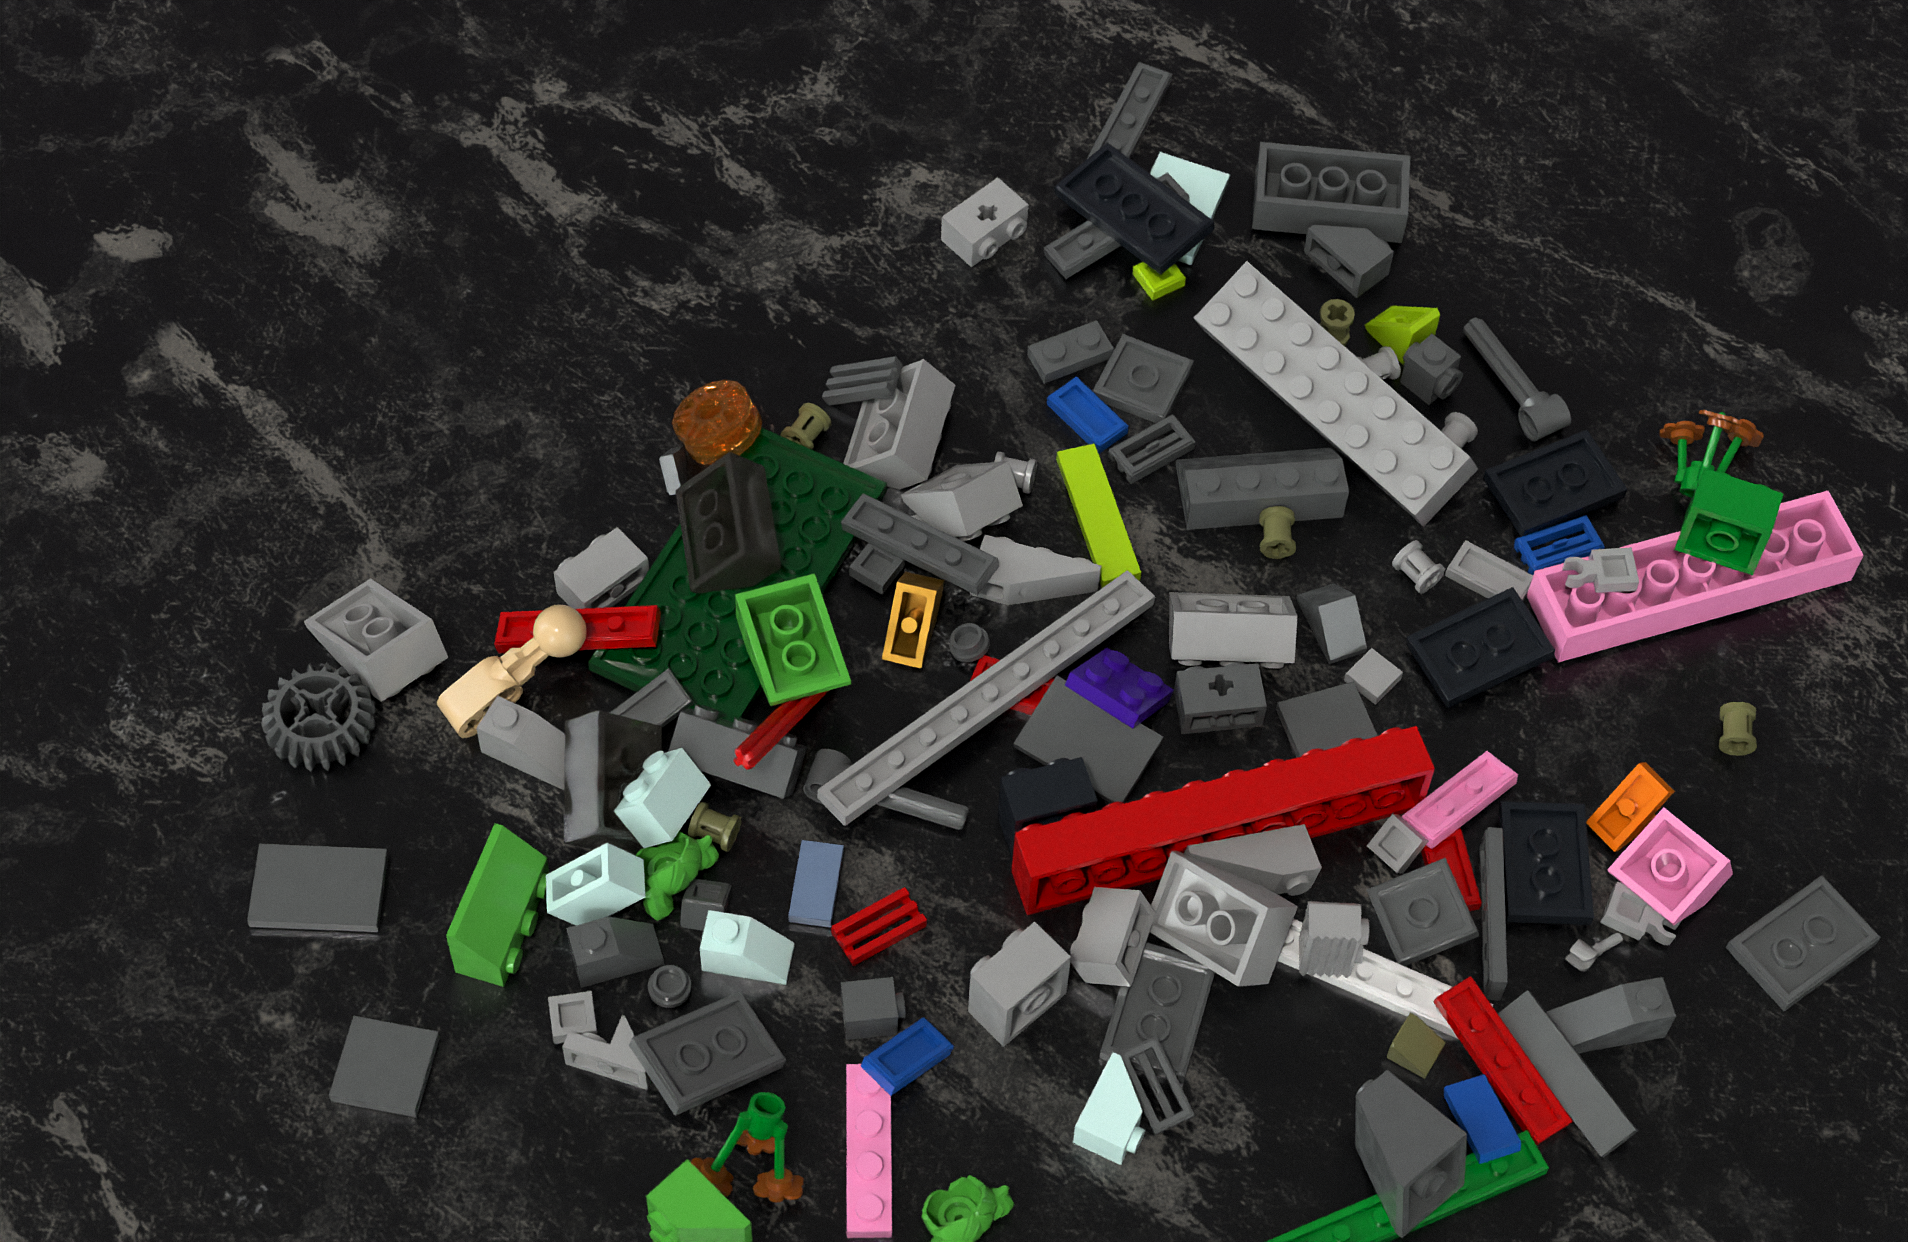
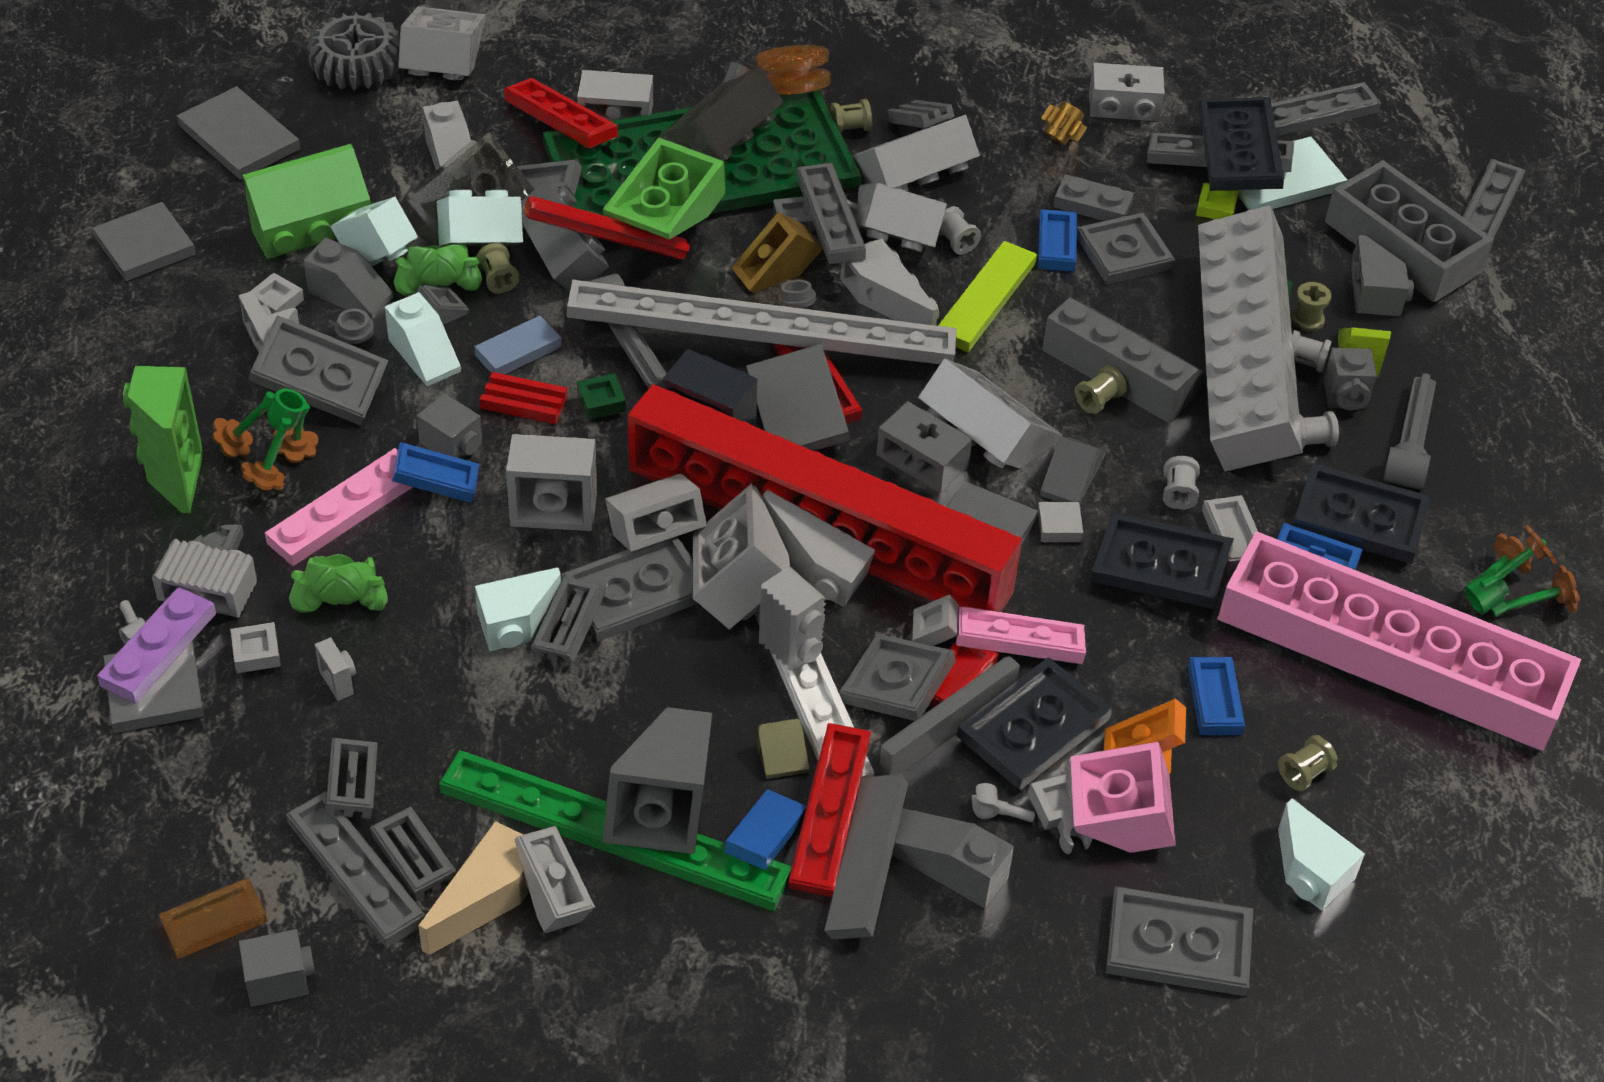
camera: 45 degrees right, 10 degrees down
(556, 632) = (532, 91): tan beam -> none
(939, 870) = (601, 396): none -> dark green plate
(976, 295) = (1063, 123): none -> pearl gold gear
(1119, 687) = (857, 384): dark purple plate -> none
(1156, 453) = (1086, 287): dark grey tile -> none
(1341, 107) = (1494, 196): none -> dark grey tile
(1608, 568) = (1308, 564): light grey plate -> none
(1622, 727) = (1216, 696): none -> blue tile
(1729, 521) = (1446, 595): green brick -> none
(1817, 799) = (1315, 857): none -> light aqua slope

